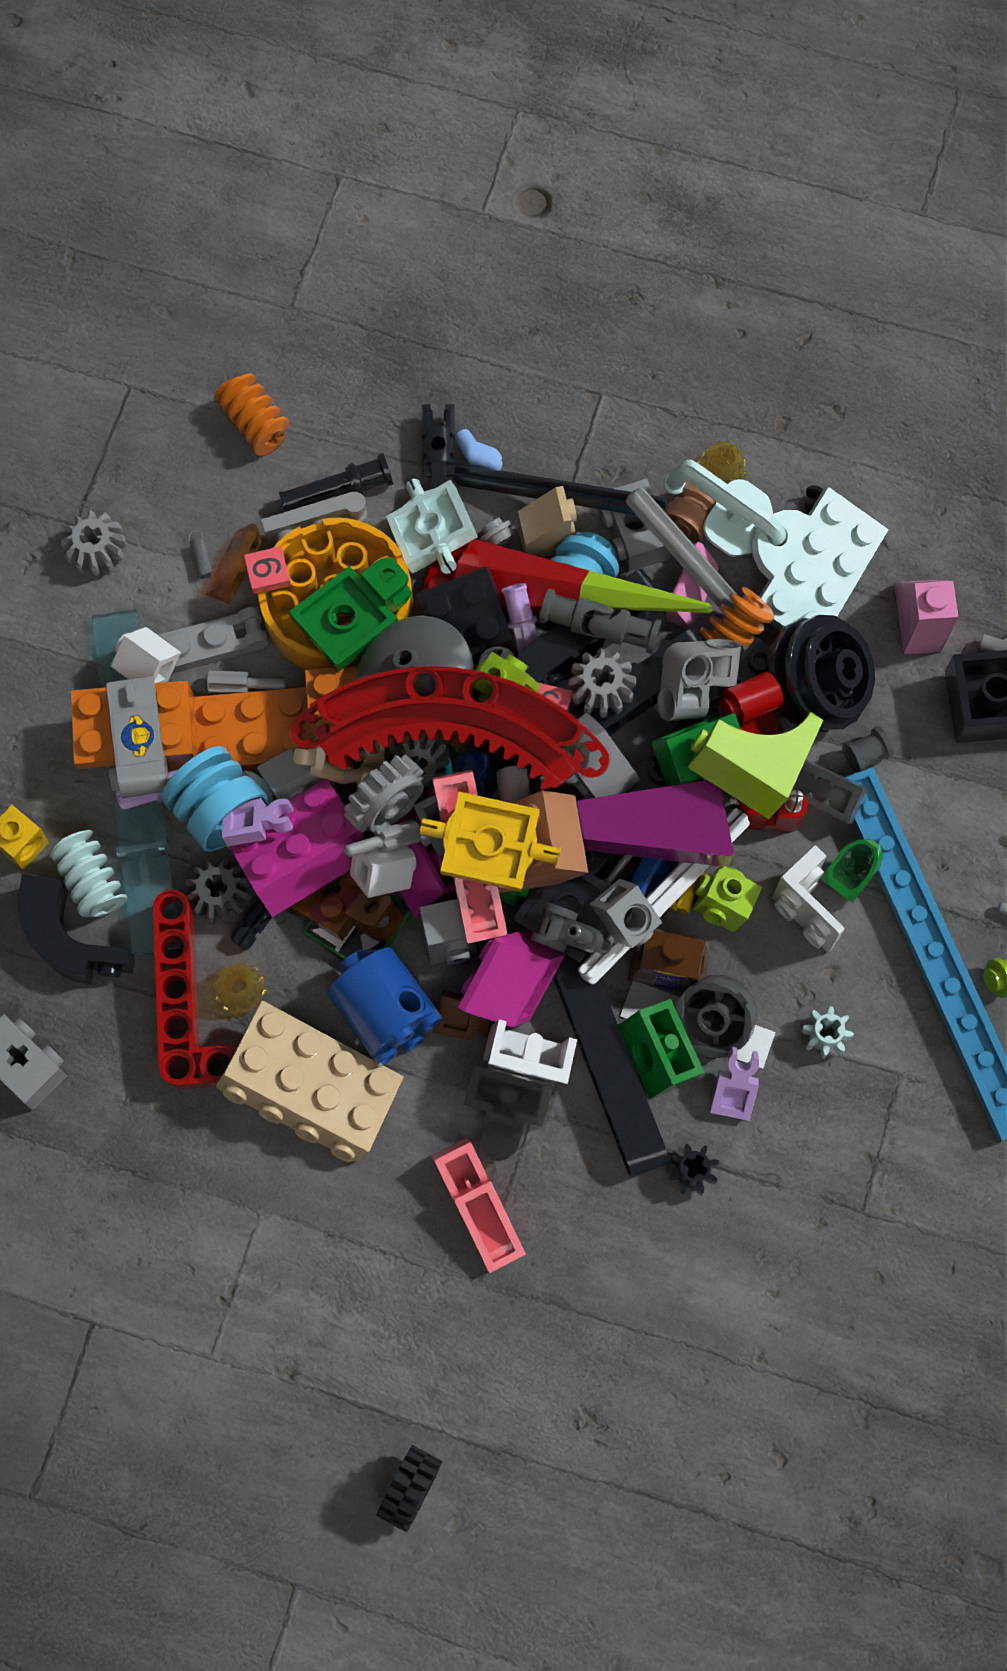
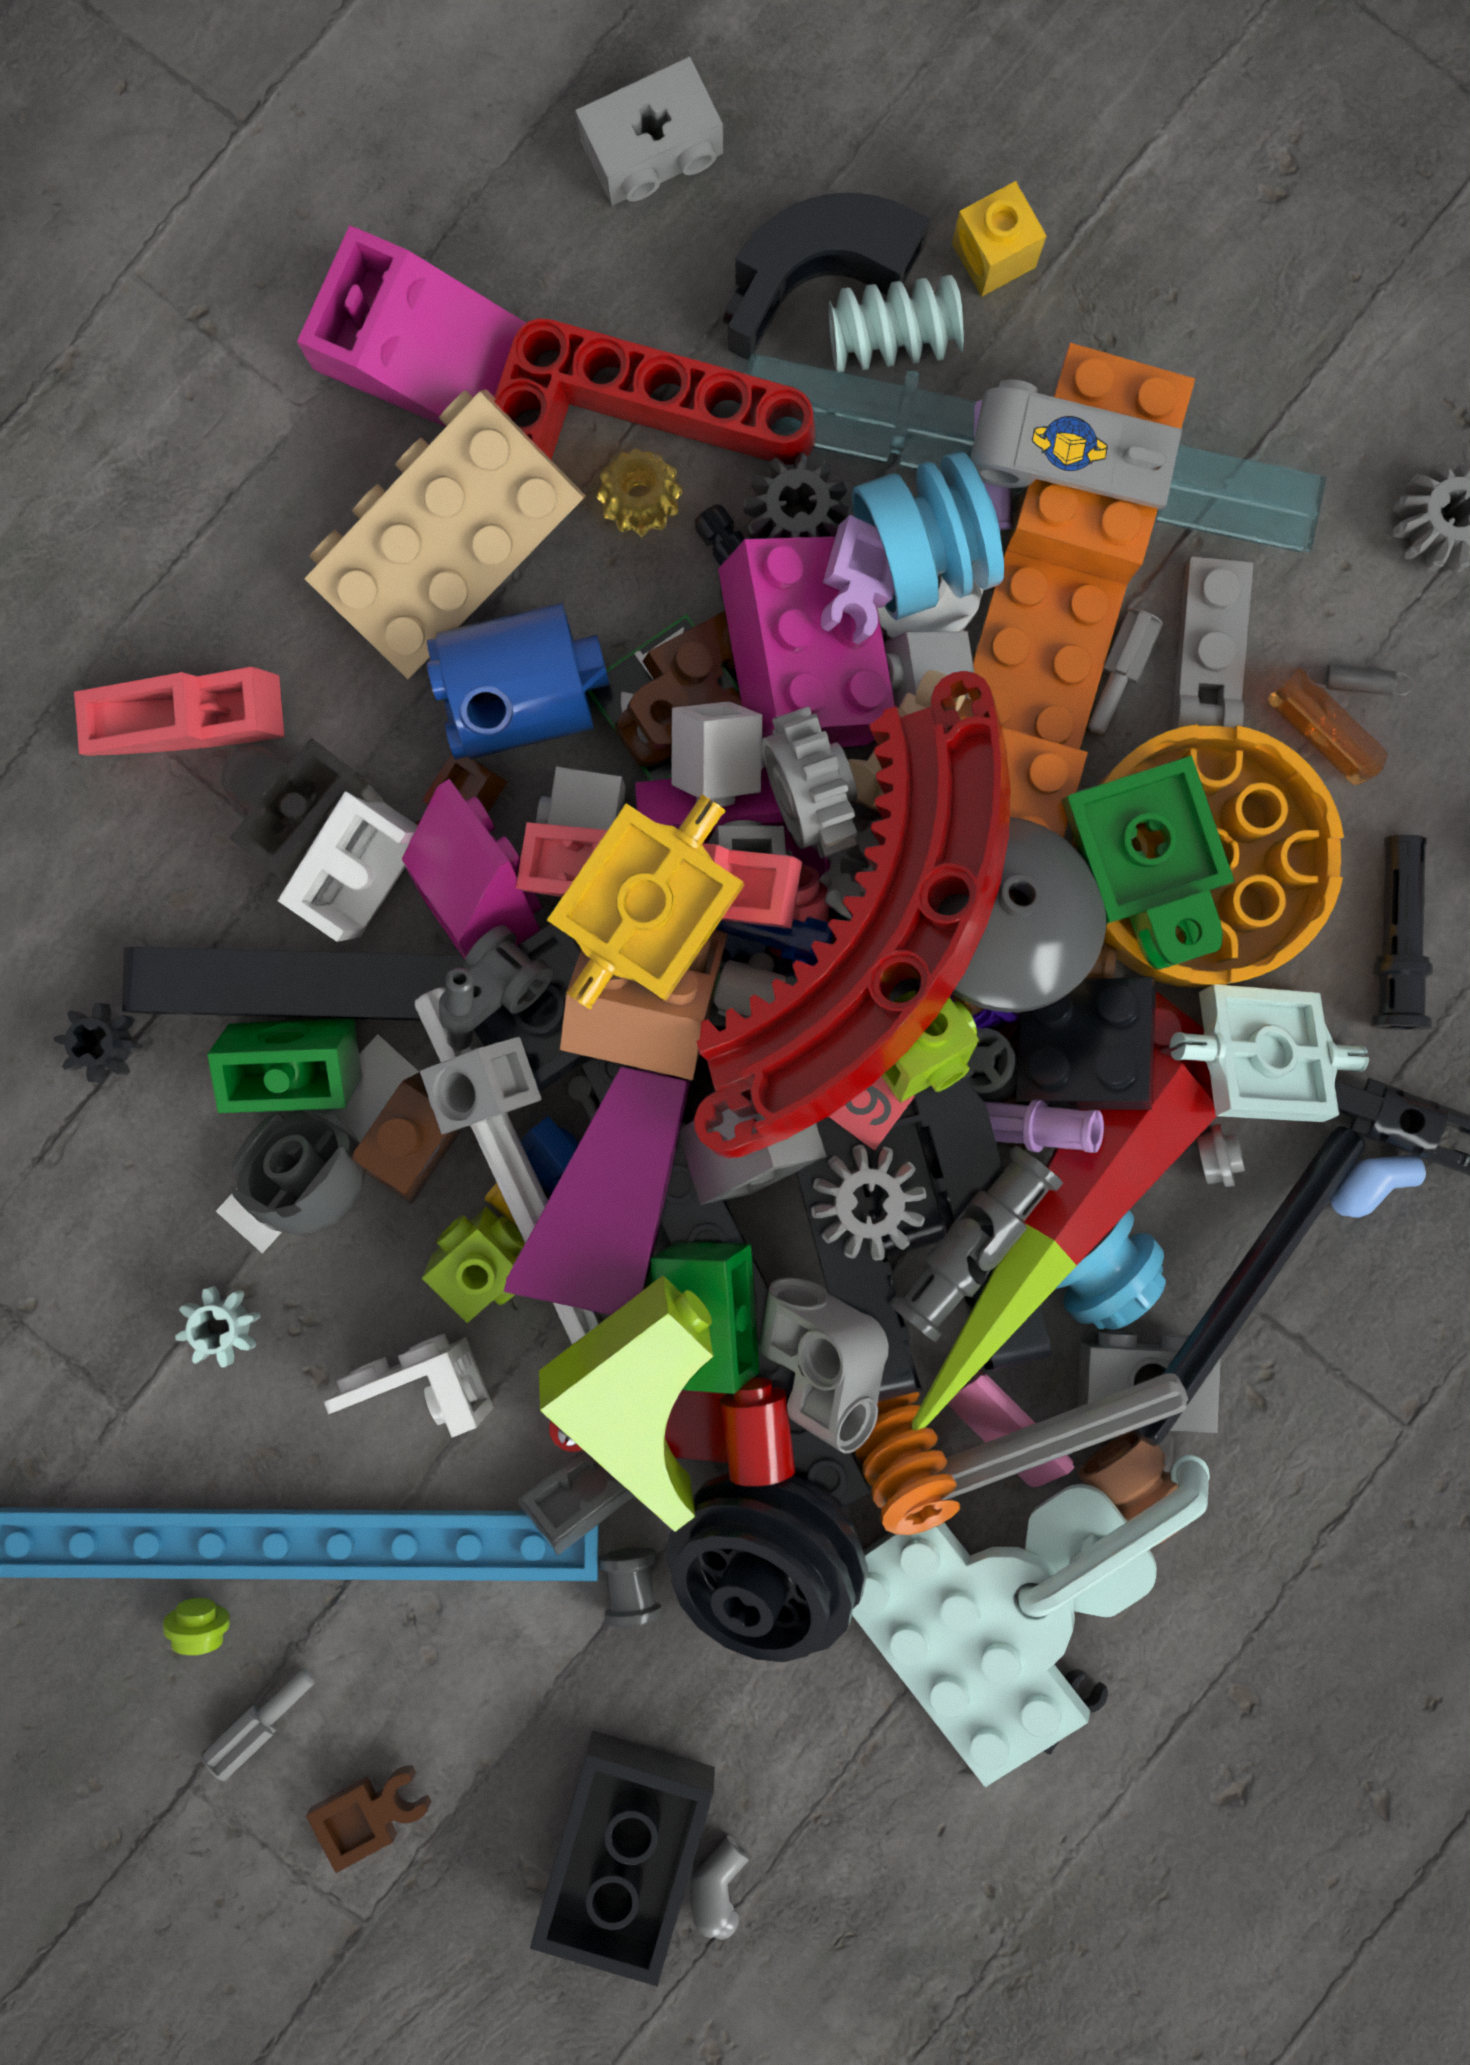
camera: 115 degrees right, 15 degrees up
(144, 655) = (1213, 521): white brick -> none
(194, 1151) = (404, 329): none -> dark pink slope
(267, 570) = (1283, 754): coral tile -> none
(344, 506) = (1358, 901): light grey plate -> none
(387, 839) = (743, 763): light grey axle -> none
(546, 523) = (1200, 1239): tan slope -> none
(724, 461) = (1183, 1550): clear yellow piece -> none
(736, 1090) = (186, 1156): lavender plate -> none
(854, 868) = (441, 1477): rock -> none
(925, 614) = (816, 1785): bright pink slope -> none

